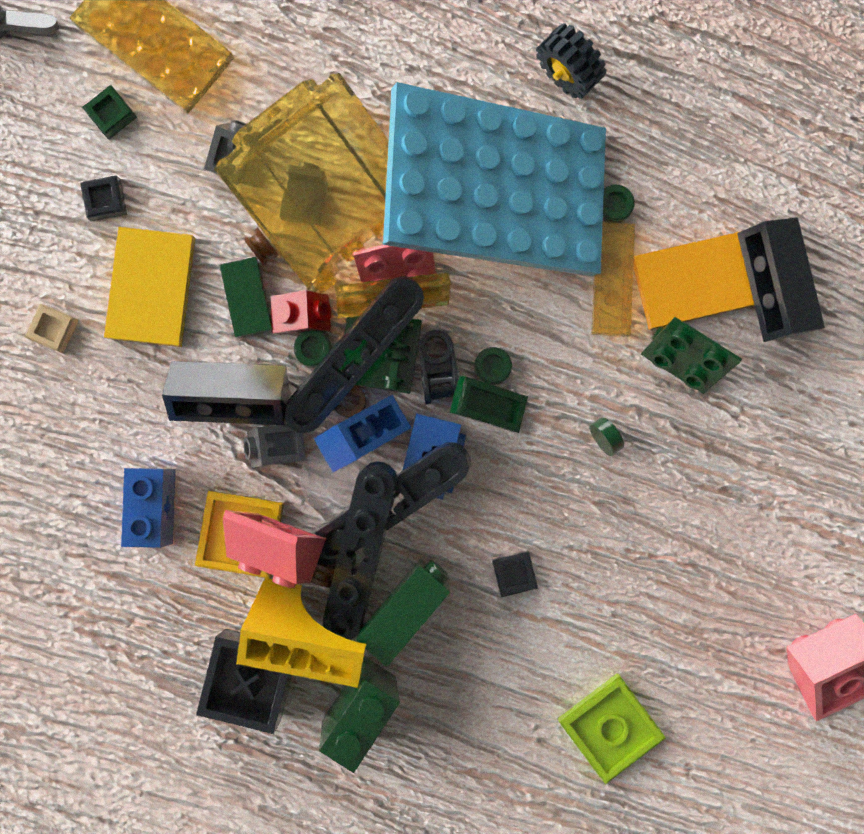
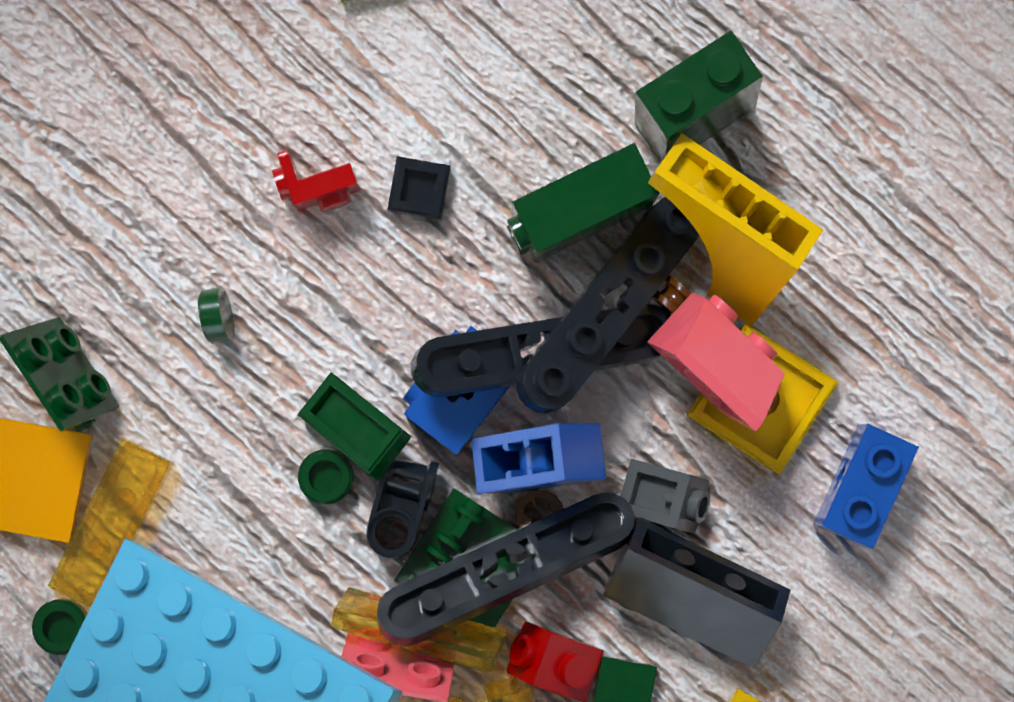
camera: 155 degrees left, 0 degrees up
(240, 692) = (839, 193): black brick -> none
(311, 347) = (558, 606): dark green tile -> none
(574, 547) = (327, 189): none -> red bracket

